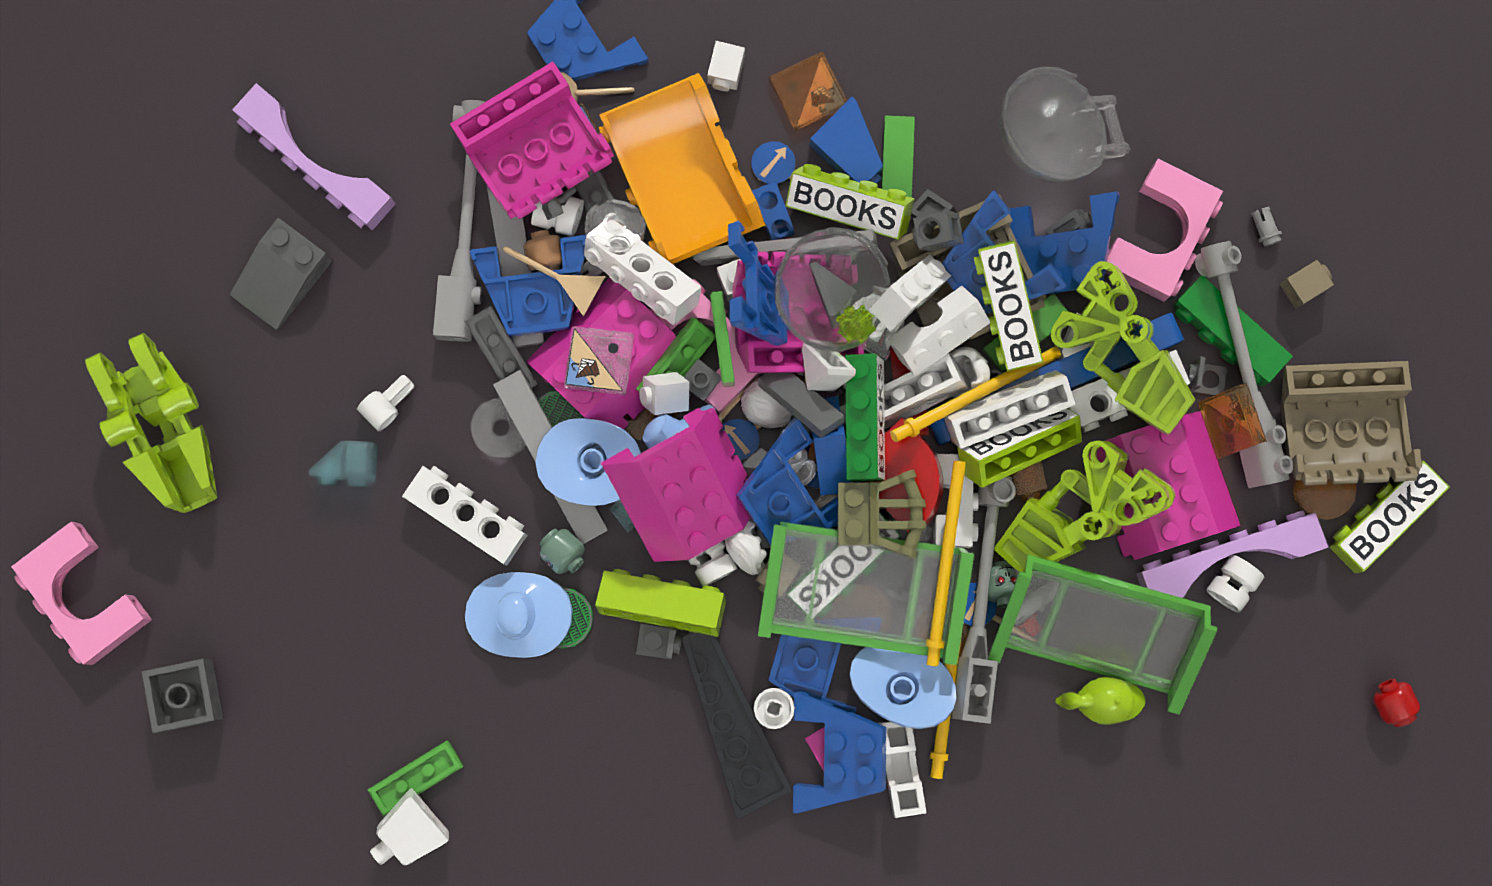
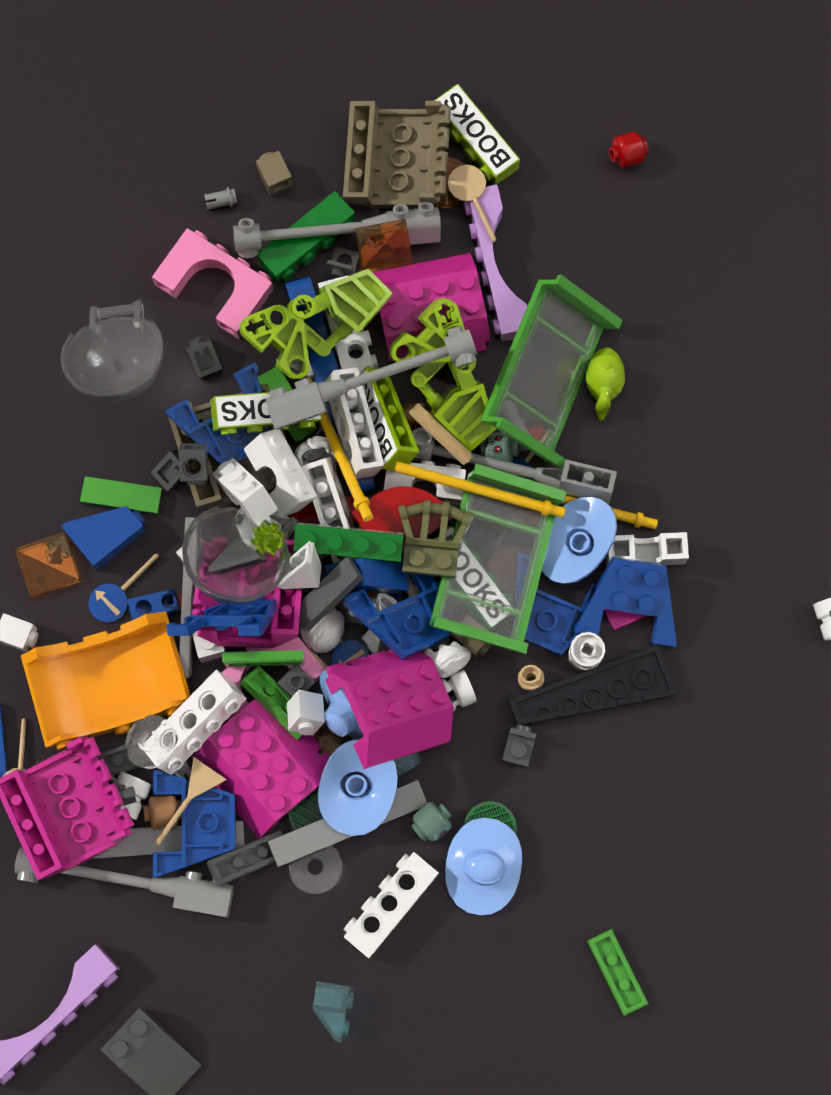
camera: 85 degrees left, 5 degrees down
(380, 408) = (285, 972): white axle -> none
(409, 831) = (664, 980): white torso -> none
(599, 360) = (270, 766): tile -> none
(661, 602) = (486, 738): lime brick -> none
(745, 644) = (531, 671): none -> tan plate
(849, 201) = (154, 537): brick -> none
(1009, 511) = (442, 435): none -> tan axle
(1026, 353) = (310, 398): none -> light grey bar
(1071, 251) = (224, 355): blue wing -> none
(1242, 575) = (512, 255): white wheel -> none
(1321, 511) = (467, 185): none -> tan piece

